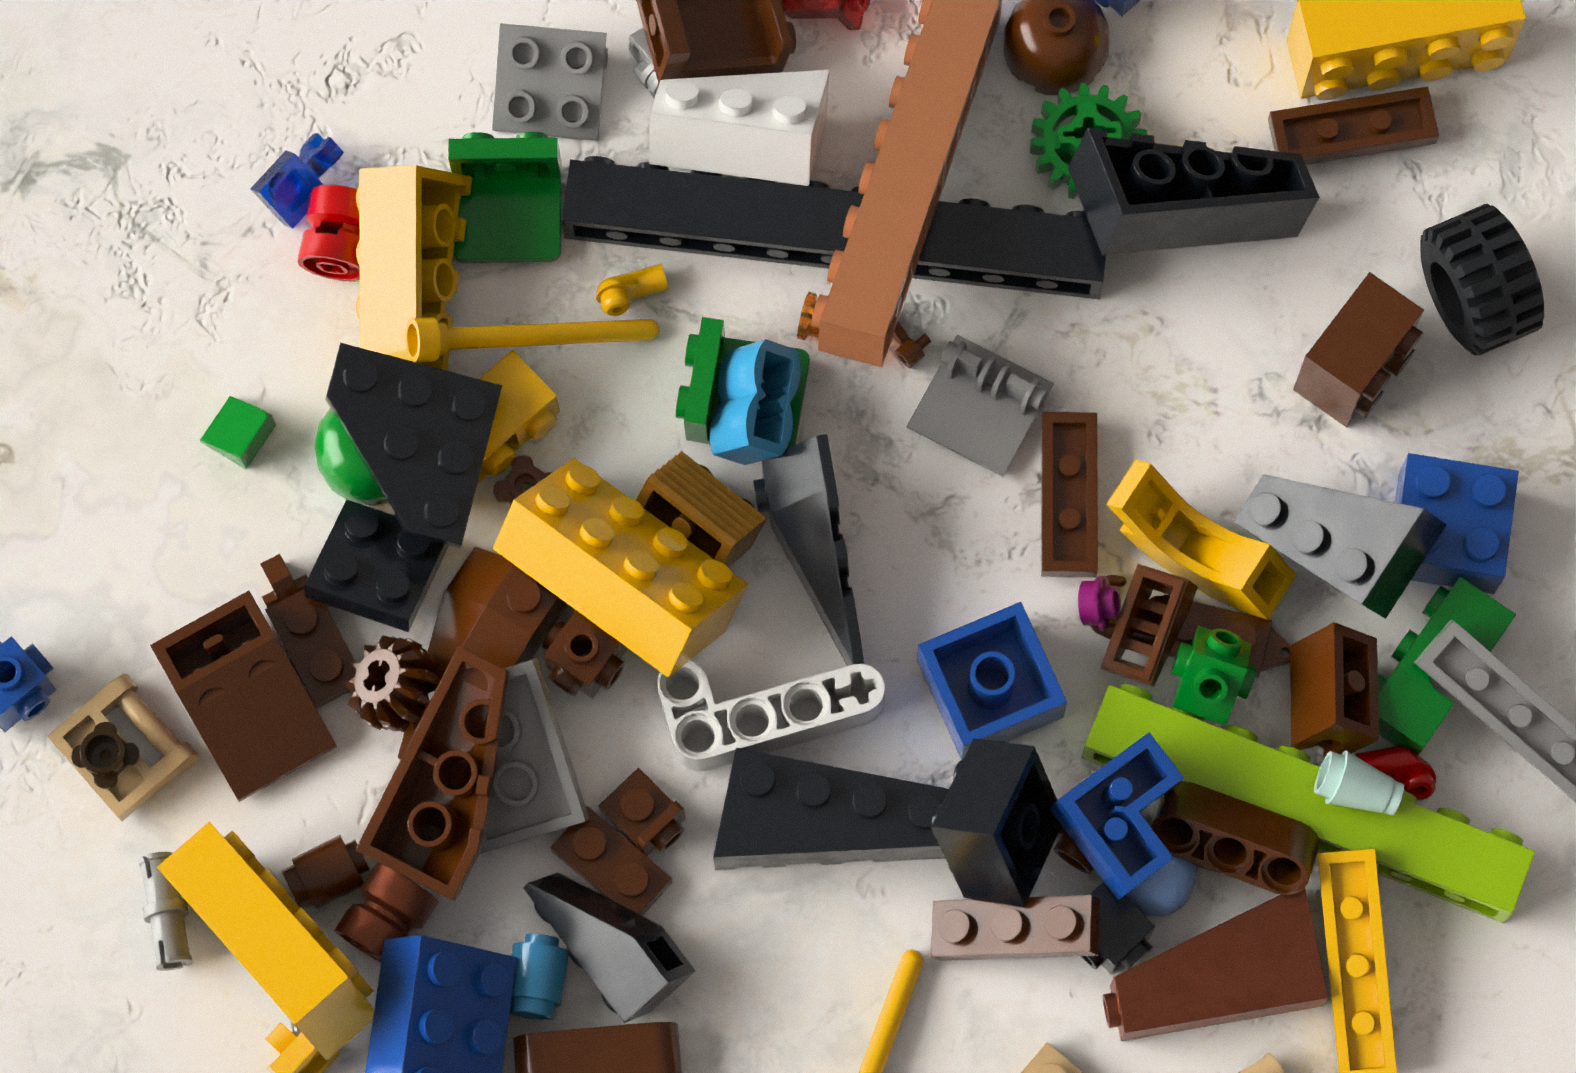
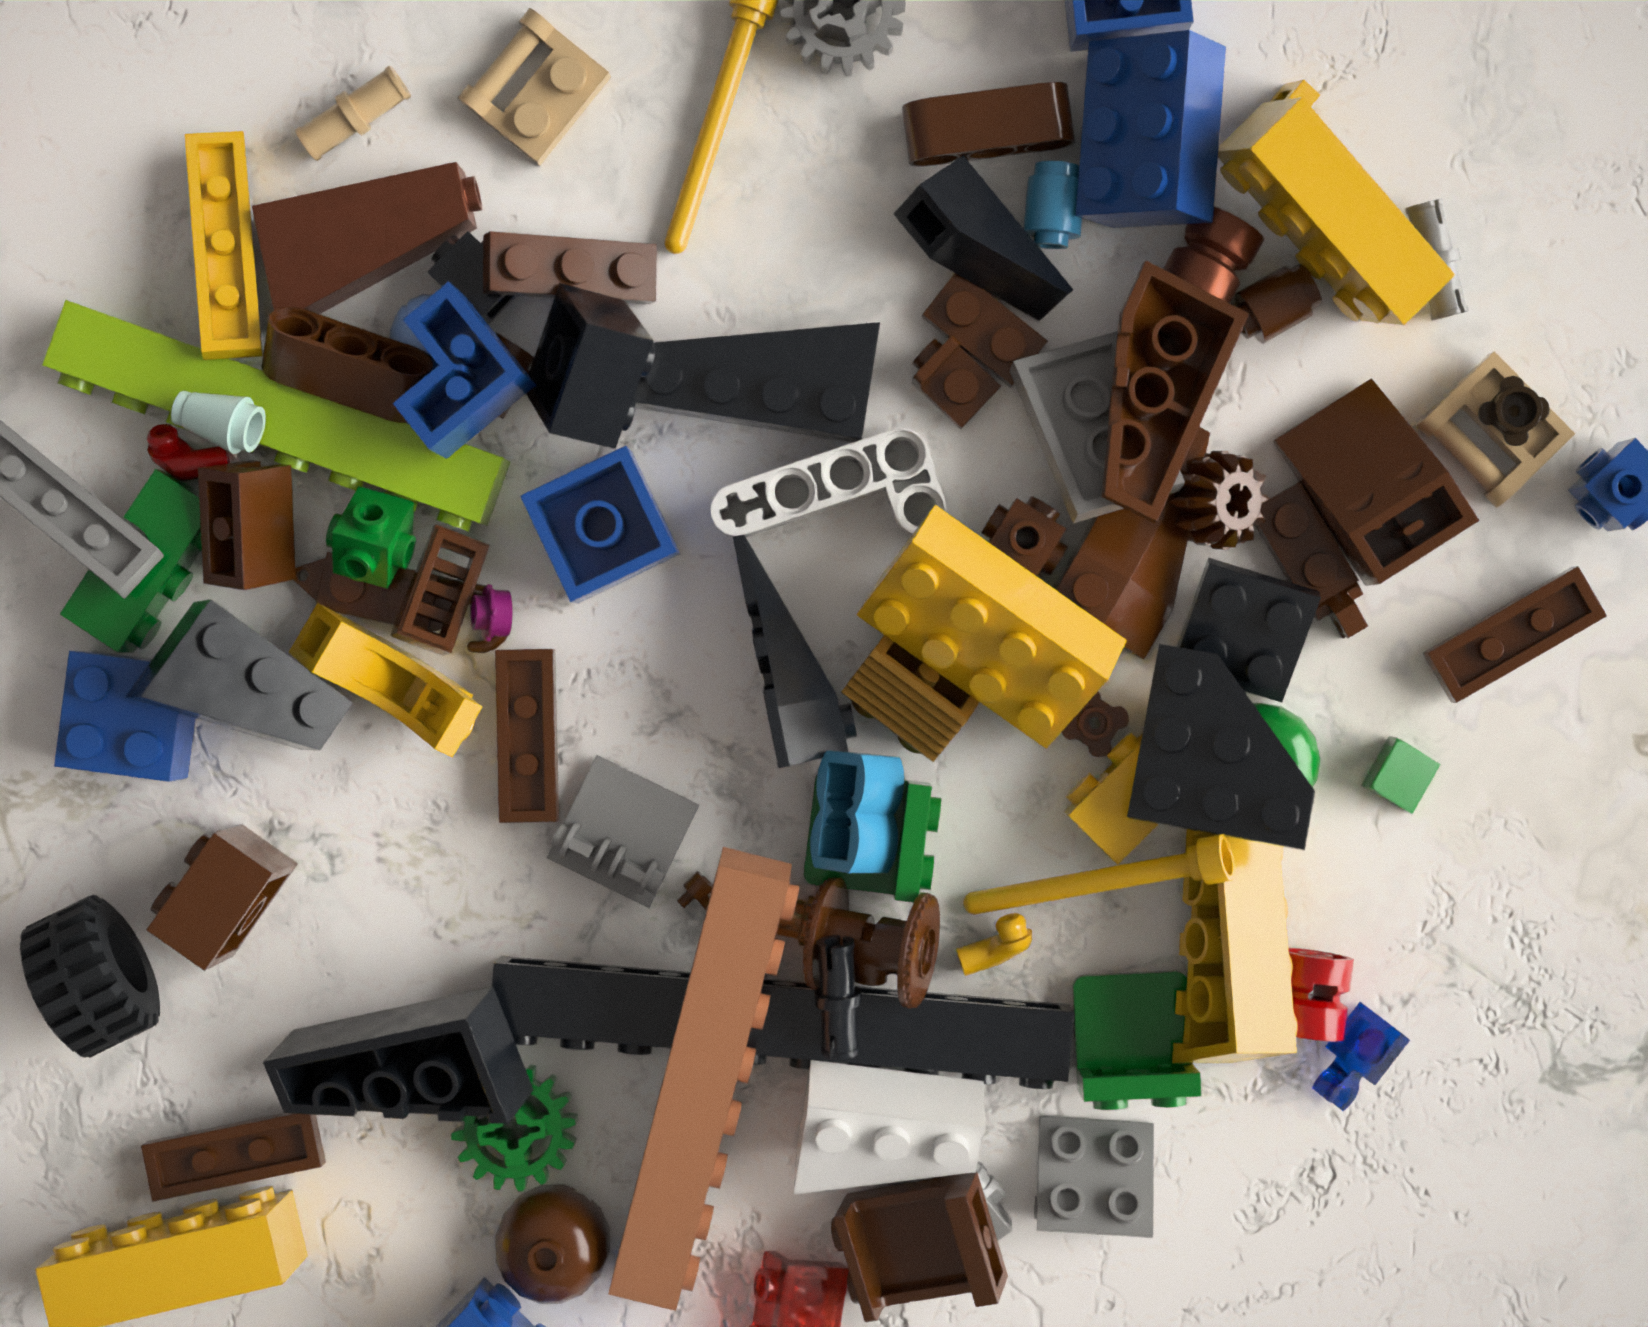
camera: 175 degrees right, 15 degrees up
(120, 554) = (1514, 634): none -> reddish brown plate
(746, 282) = (880, 948): none -> reddish brown hose
(780, 234) = (837, 997): none -> black pin

